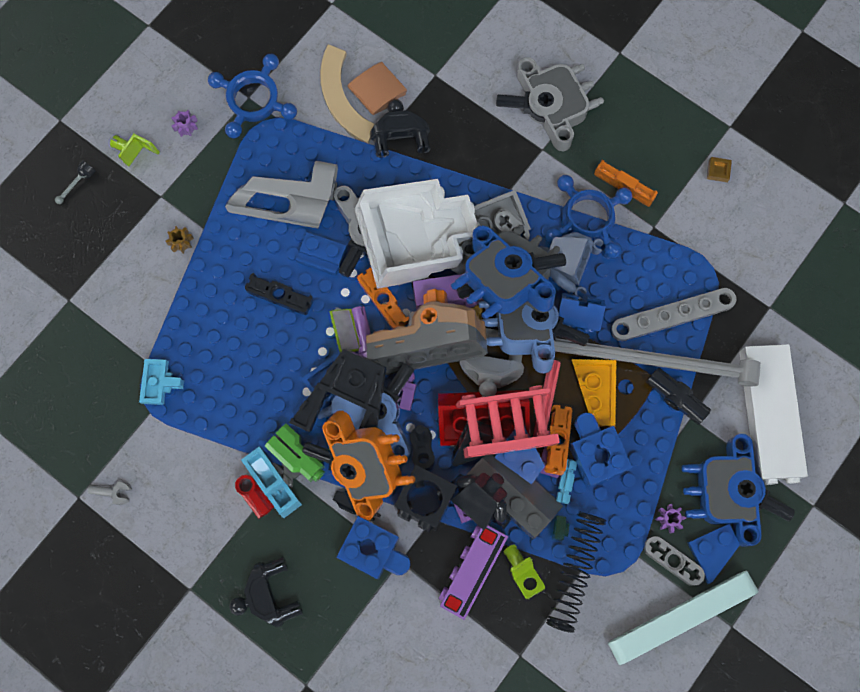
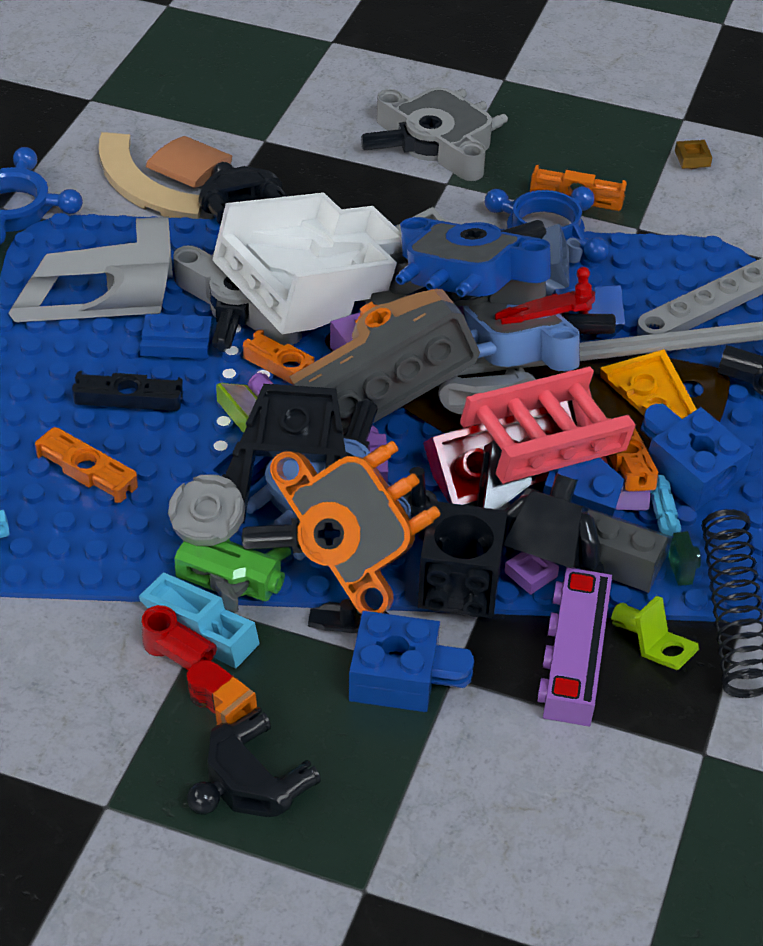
camera: 20 degrees left, 30 degrees down
(231, 336) = (69, 452): none -> orange piece
(268, 540) = (219, 692): none -> leg
(288, 423) = (206, 510): none -> light grey tile
(550, 319) = (578, 300): none -> red piece

